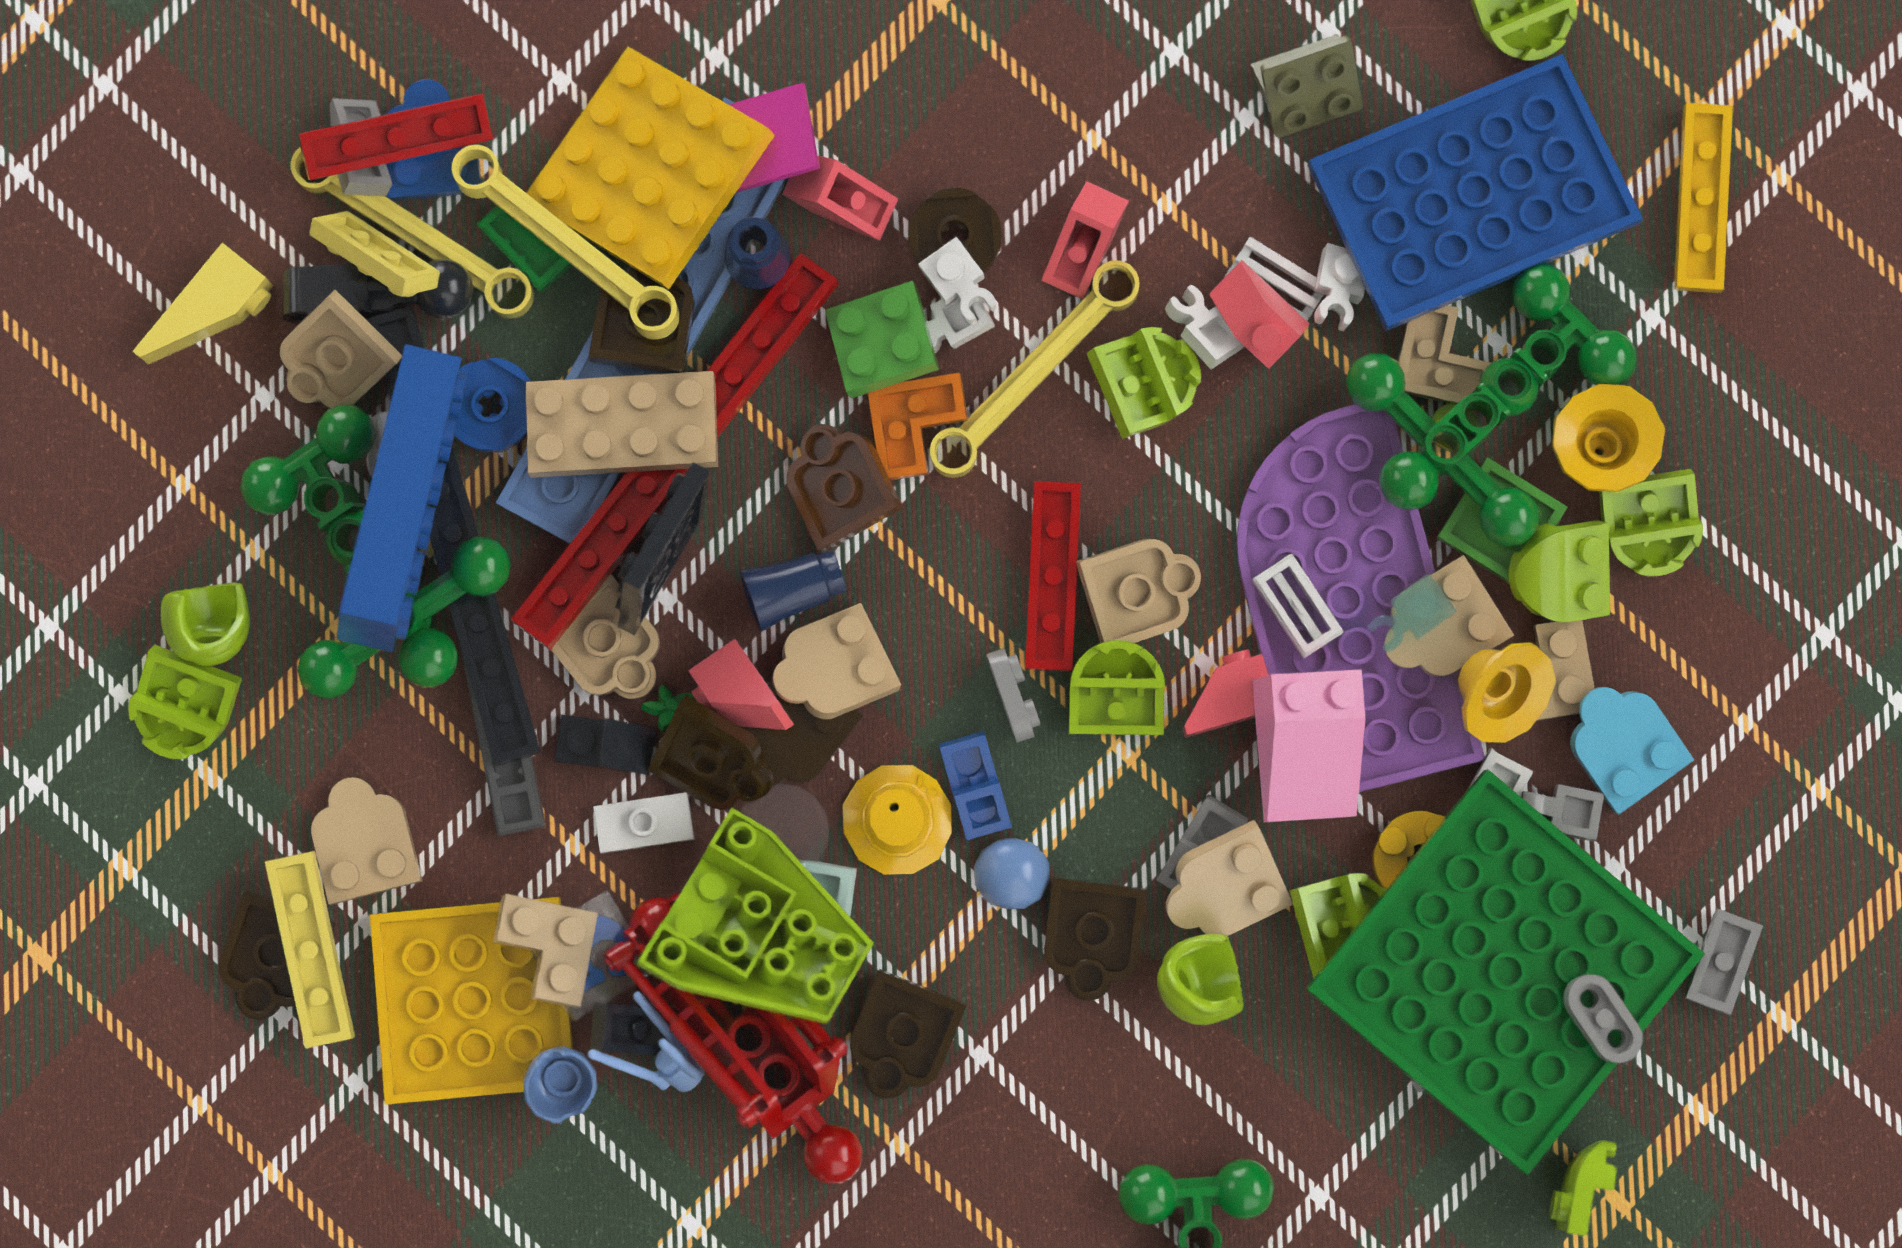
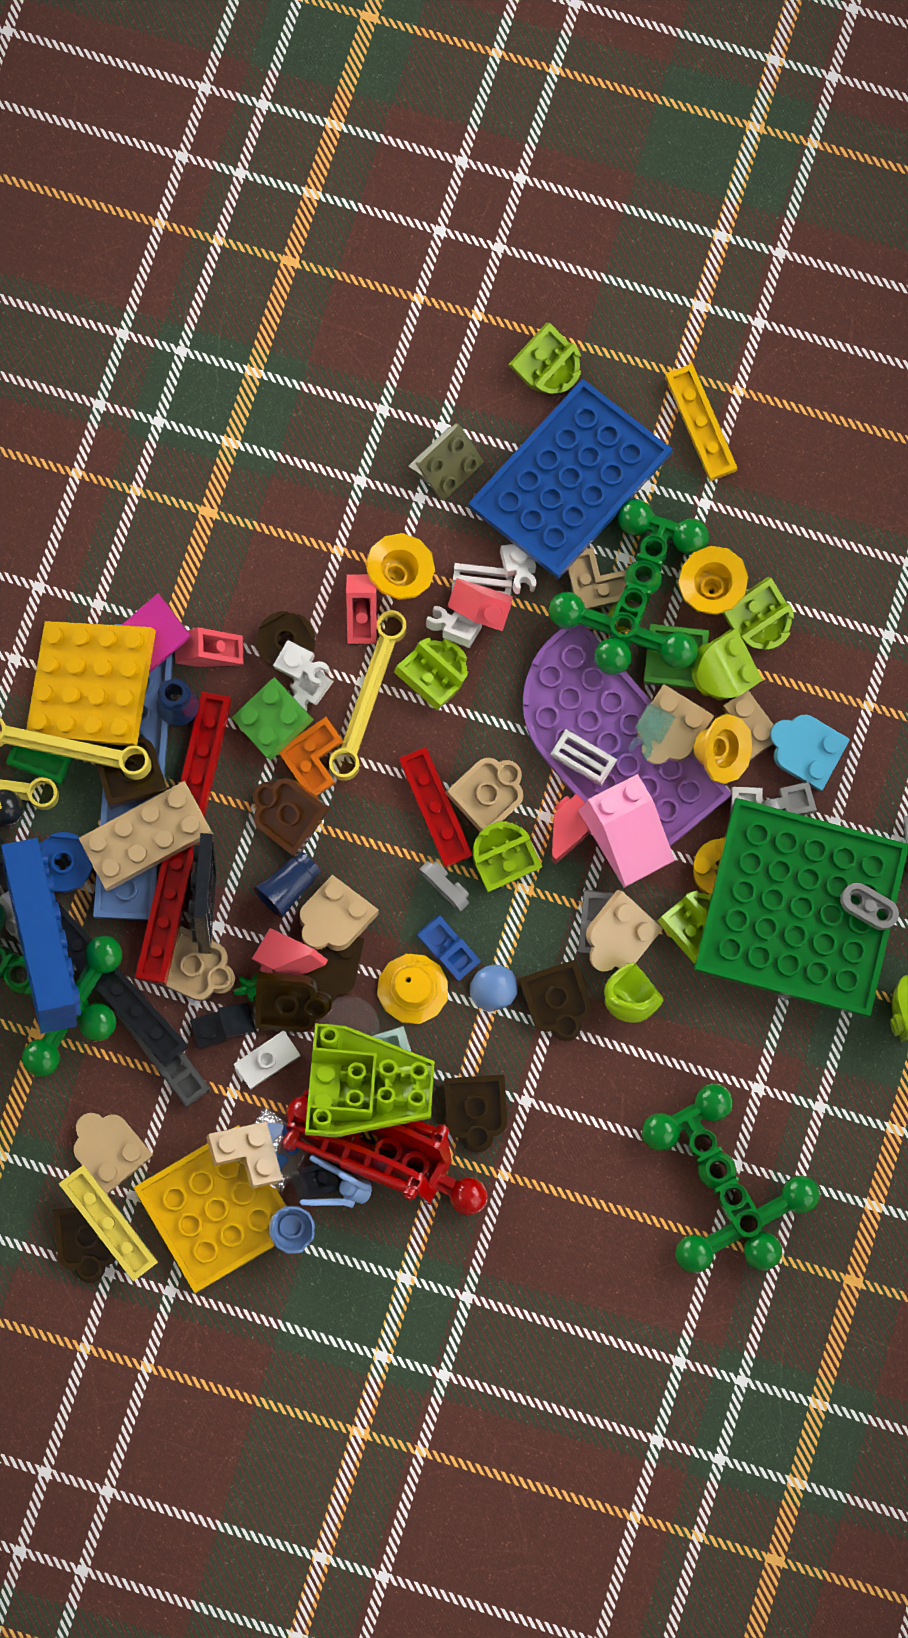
camera: 30 degrees left, 5 degrees down
(1178, 201) = (400, 566): none -> yellow hat

